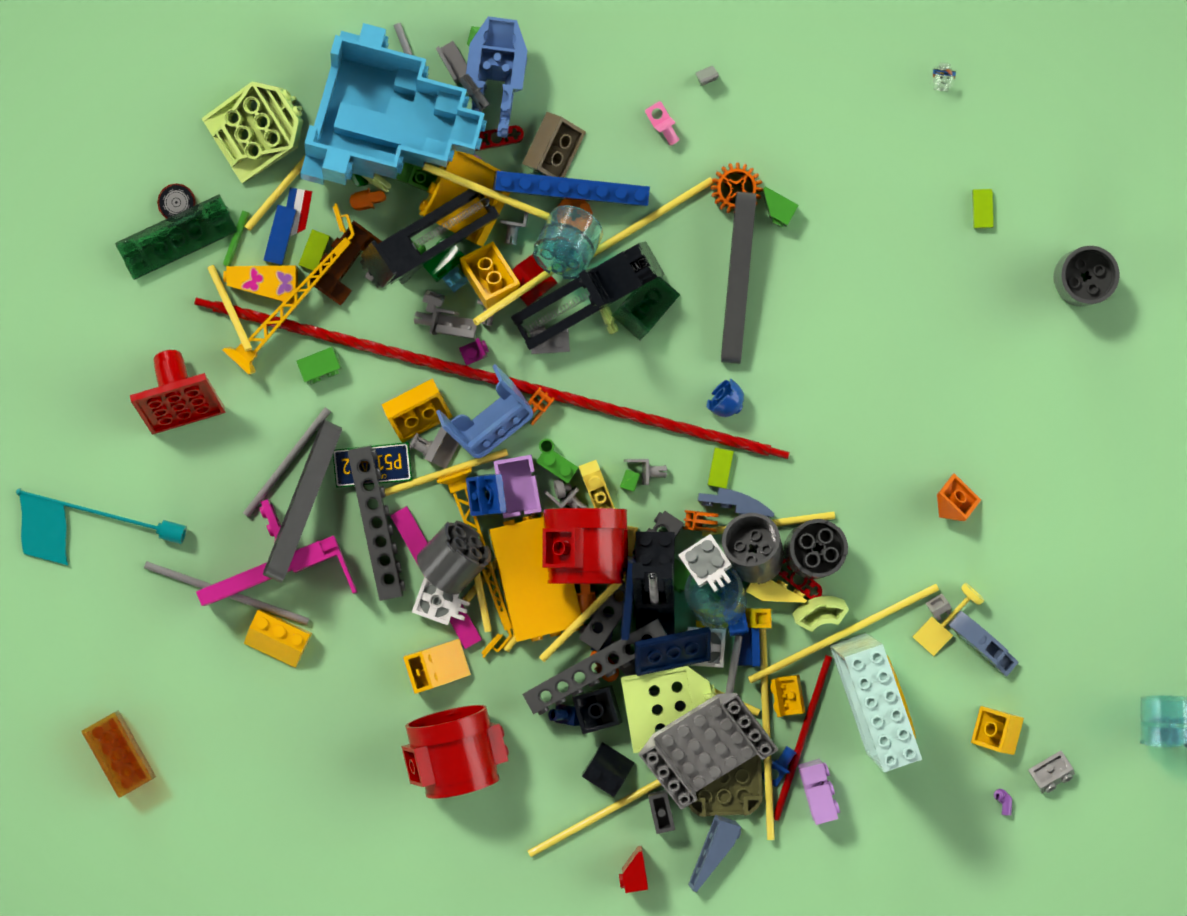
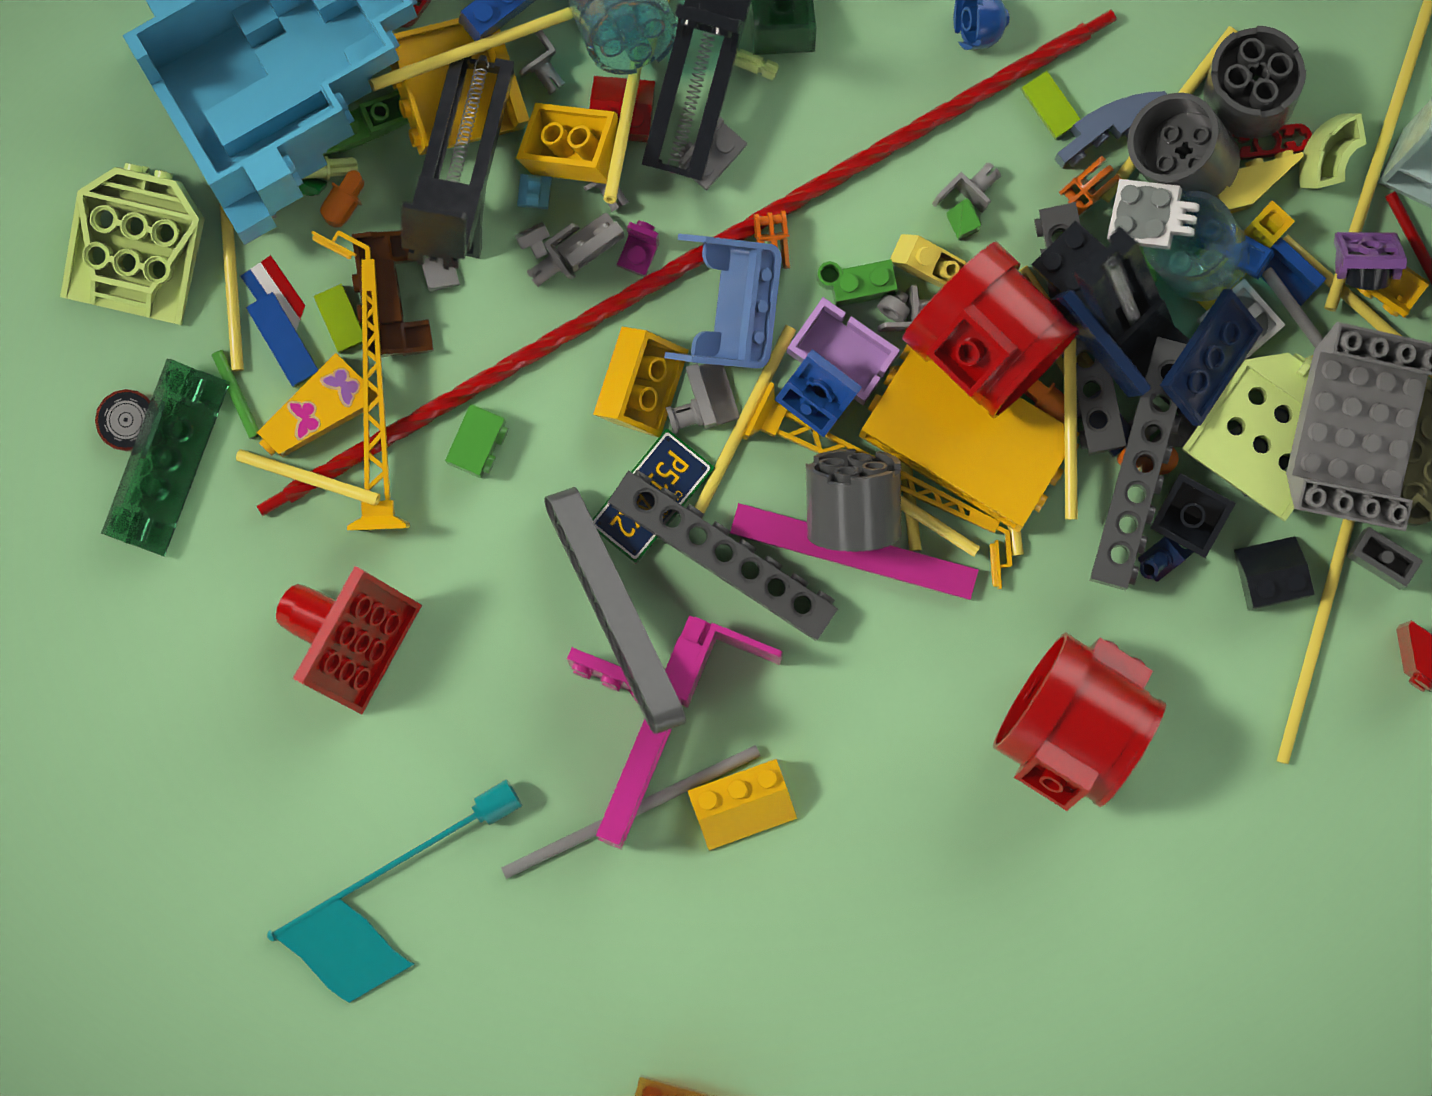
camera: 45 degrees left, 5 degrees down
(287, 461) = (549, 591): light grey piece -> none
(436, 665) = (957, 650): yellow slope -> none
(438, 604) = (886, 574): white piece -> none
(444, 263) = (502, 183): green brick -> none
(785, 679) = (1368, 266): none -> medium lavender piece

